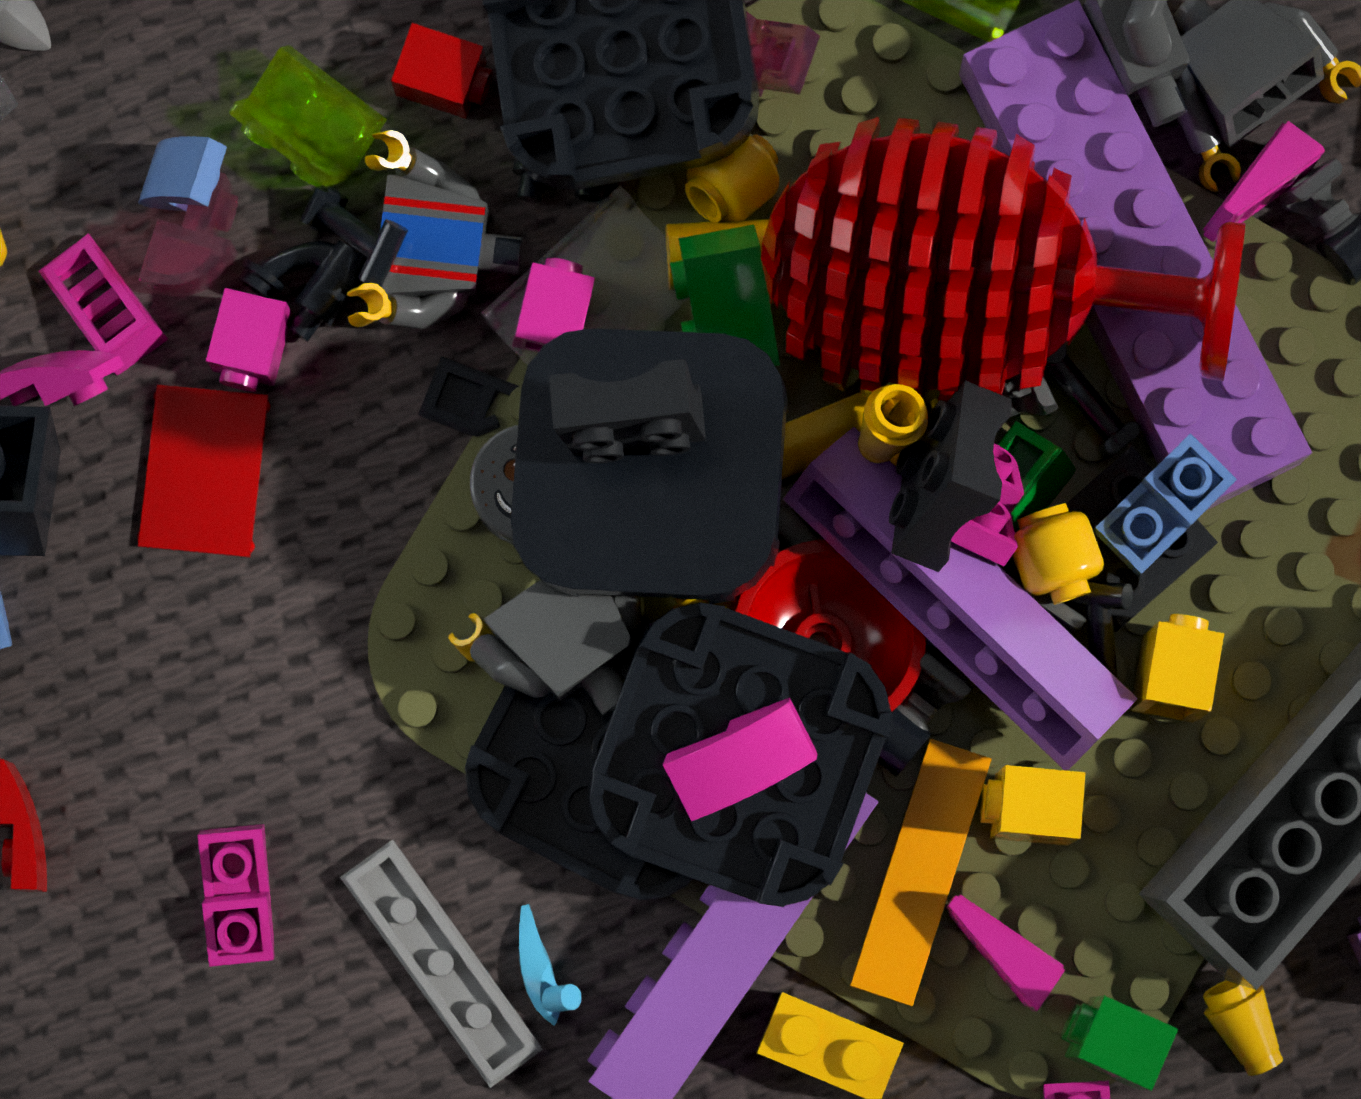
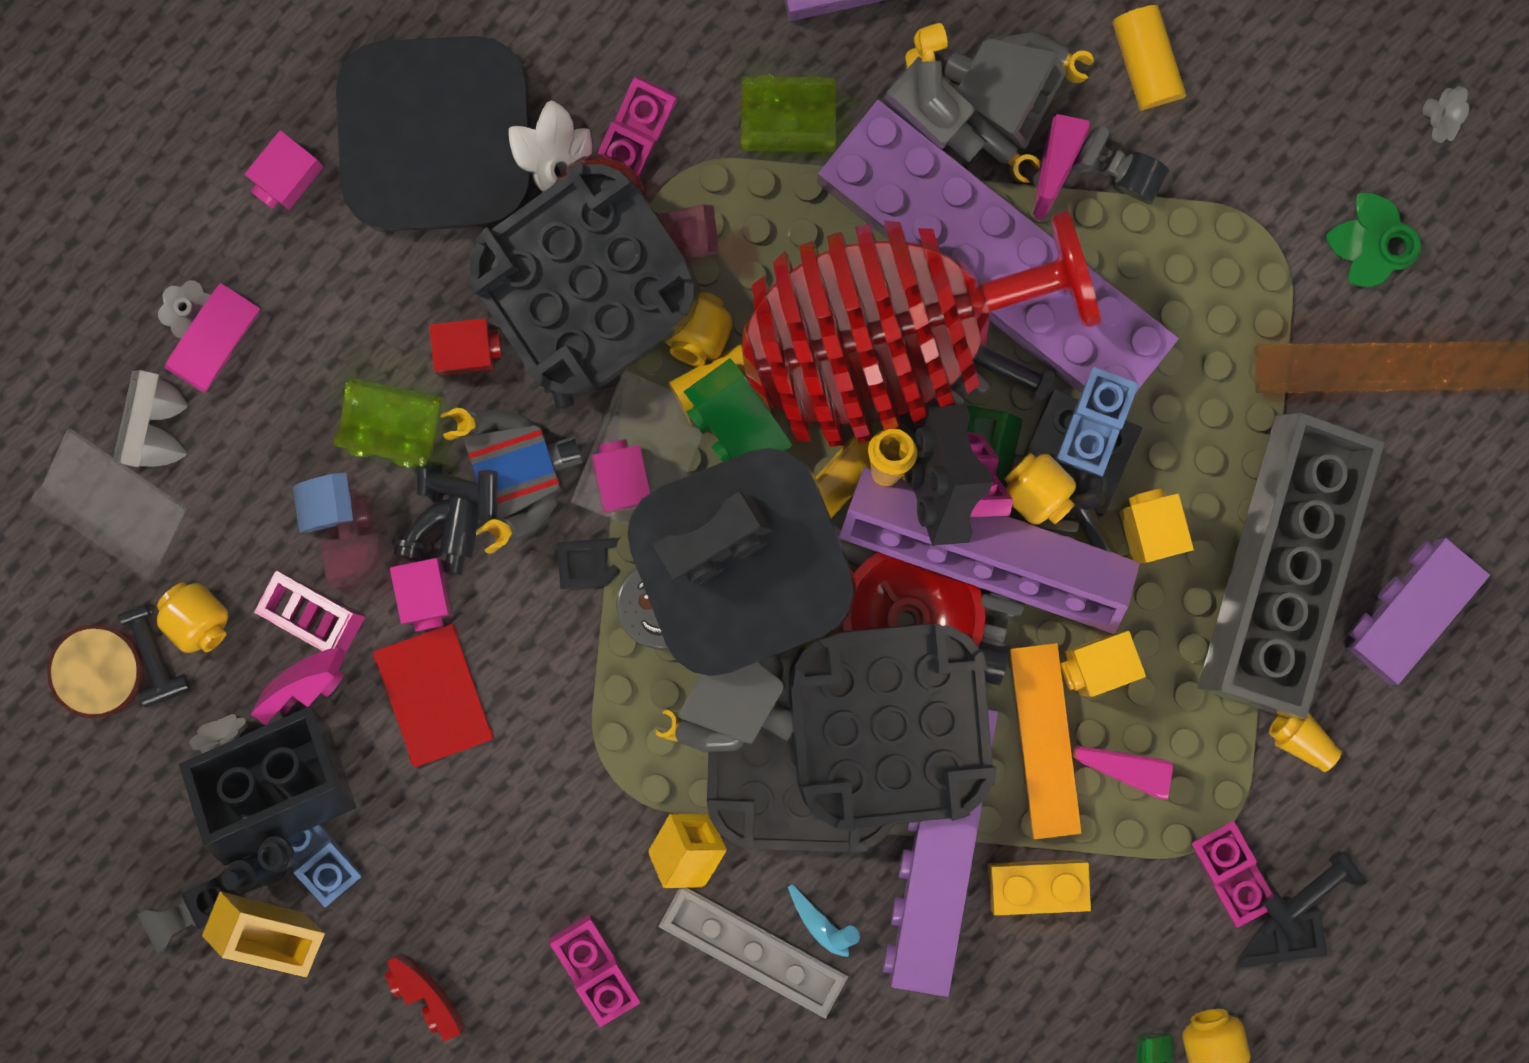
camera: 25 degrees left, 5 degrees up
(418, 801) = (686, 851): none -> yellow panel
(740, 761) = (899, 731): dark pink slope -> none
(1118, 1041) = (1230, 796): green brick -> none

